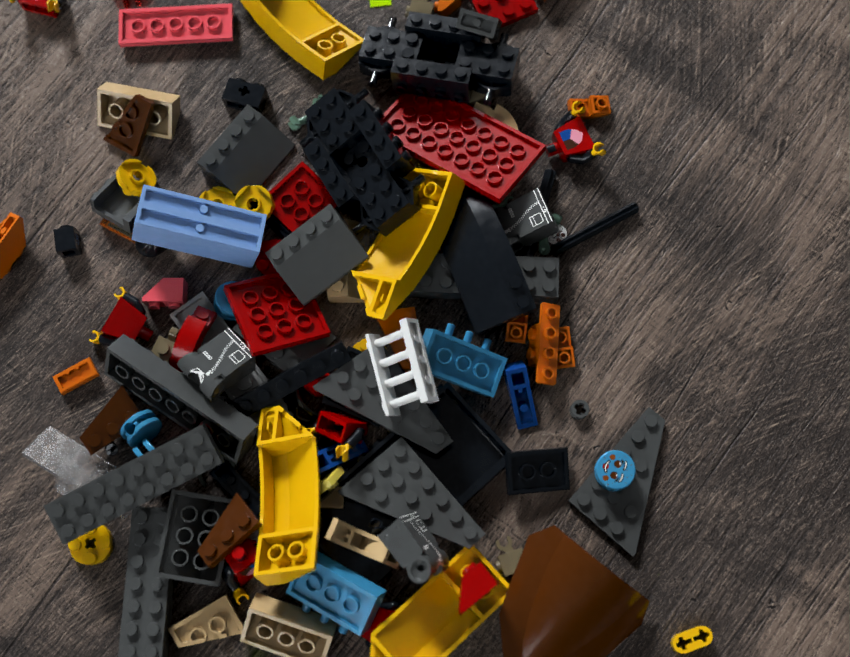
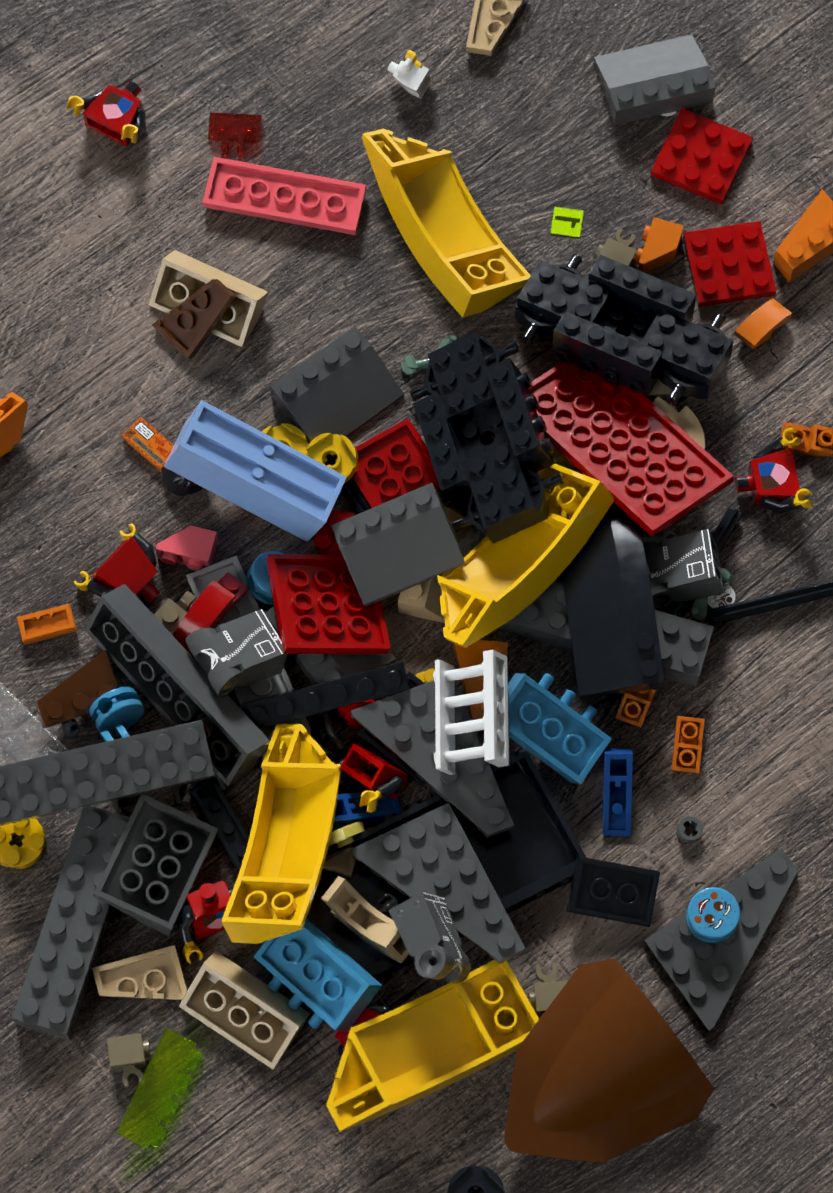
camera: 10 degrees right, 5 degrees down
(67, 241) = (75, 447): black brick -> none
(115, 205) = (153, 416): dark grey panel -> none
(125, 177) = (175, 395): yellow plate -> none
(229, 531) = (201, 863): reddish brown wing -> none
(240, 93) = (348, 300): black brick -> none
(474, 585) = (495, 1003): red slope -> none
(479, 24) = (687, 295): dark grey panel -> none
(534, 33) = (762, 323): none -> orange slope
(544, 344) = (665, 733): orange bracket -> none
(692, 645) = (755, 1146): yellow beam -> none

